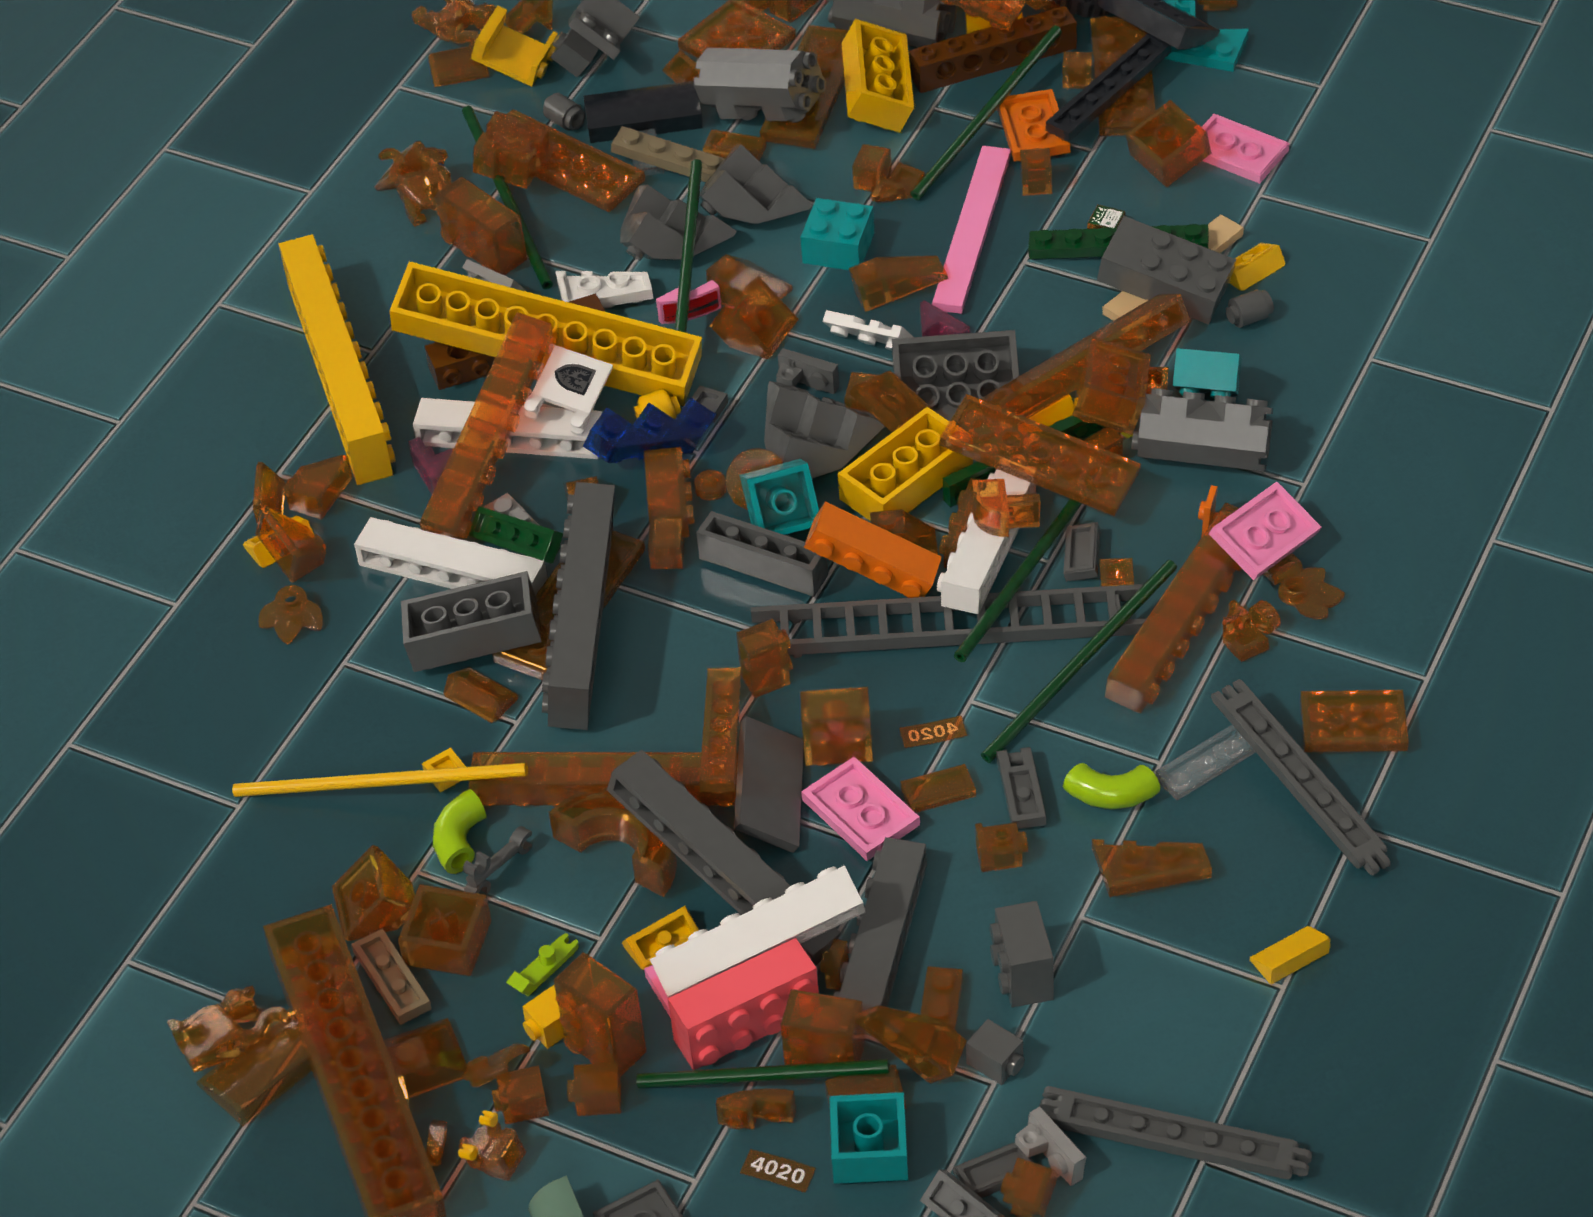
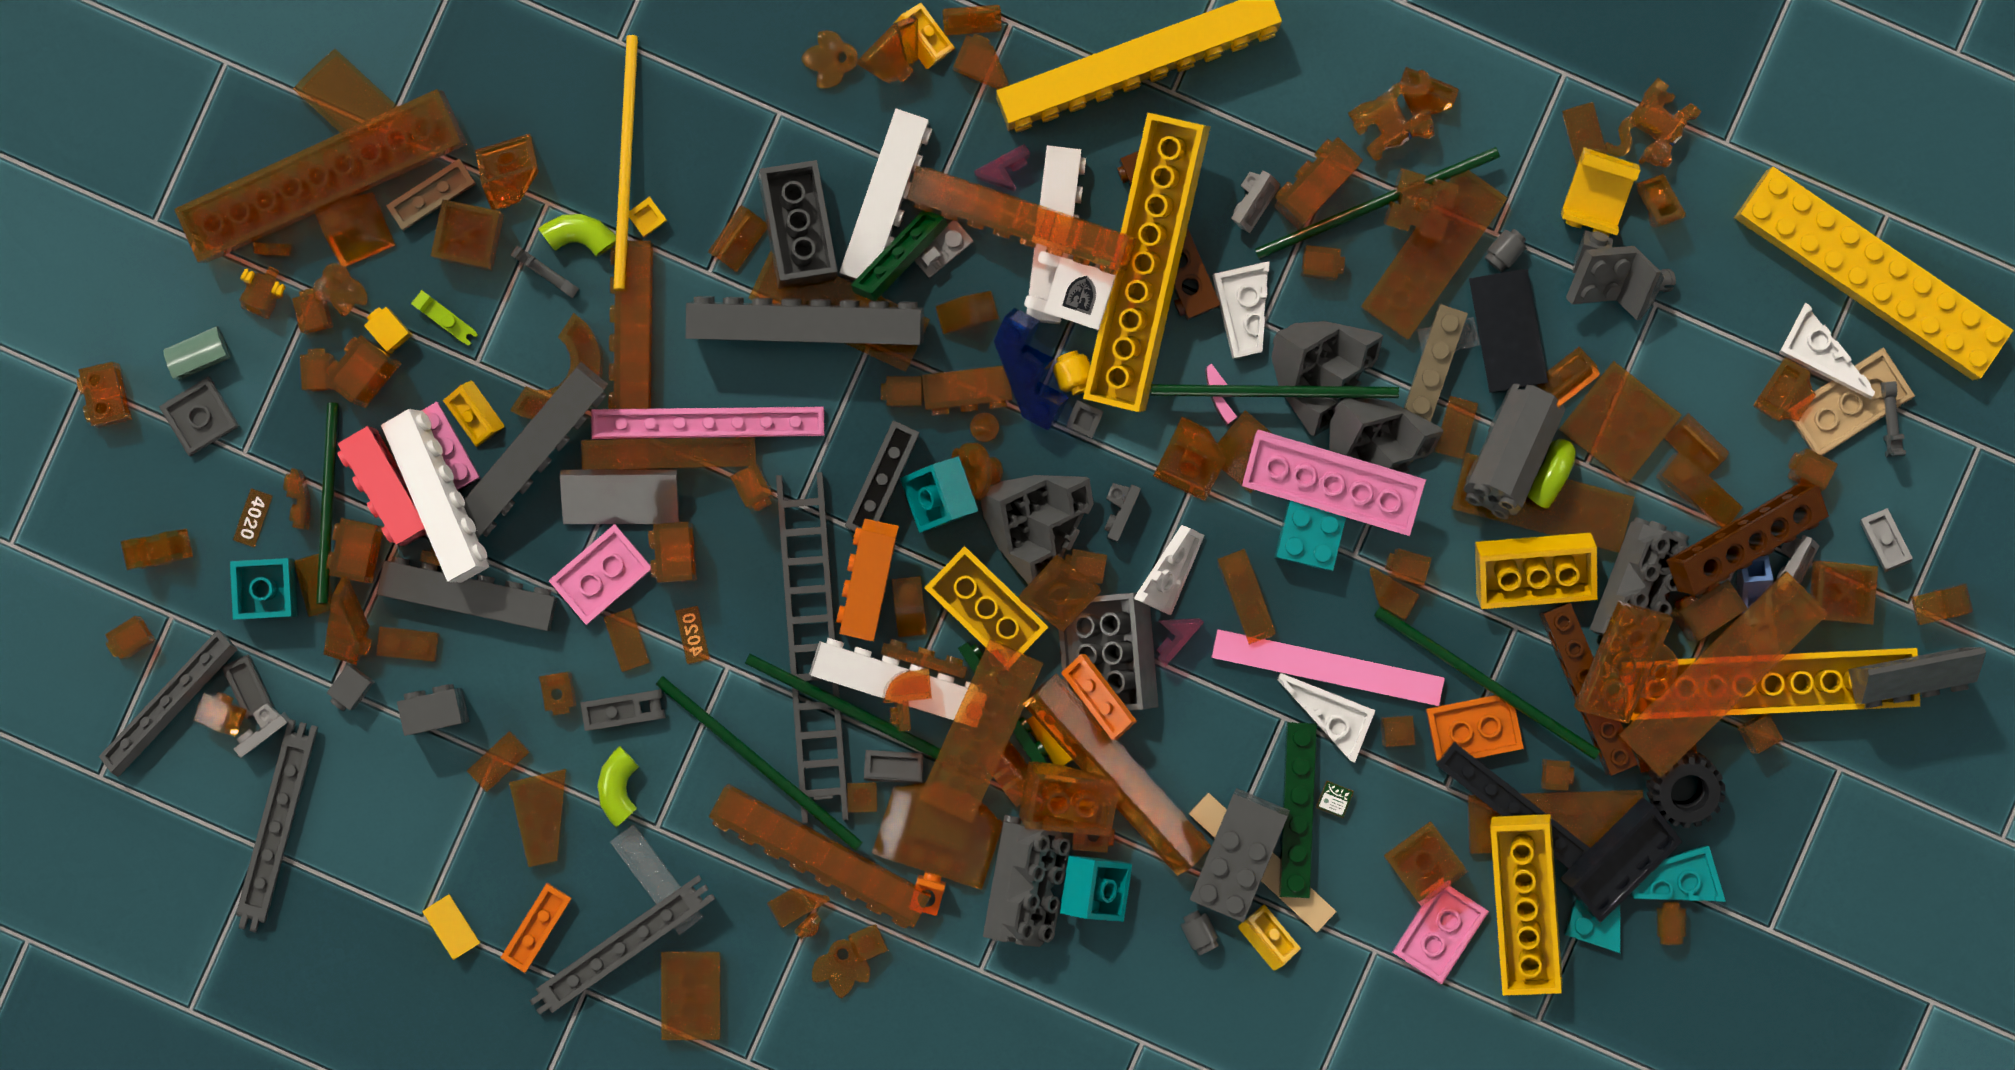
camera: 80 degrees right, 40 degrees up
(219, 1031) = (371, 62): clear orange animal -> none
(561, 234) = (1322, 262): none -> clear orange brick
(688, 699) = (707, 422): none -> bright pink tile
(783, 199) = (1333, 482): none -> bright pink plate
(1004, 366) = (1098, 697): none -> orange plate
(1021, 214) = (1338, 717): none -> white wing
(1084, 909) = (498, 761): none -> clear orange plate
(1155, 519) = (936, 839): none -> clear orange slope
(1205, 67) = (1526, 904): none -> yellow brick
(1265, 530) = (890, 931): bright pink plate -> none
(1285, 865) = (536, 927): none -> orange plate

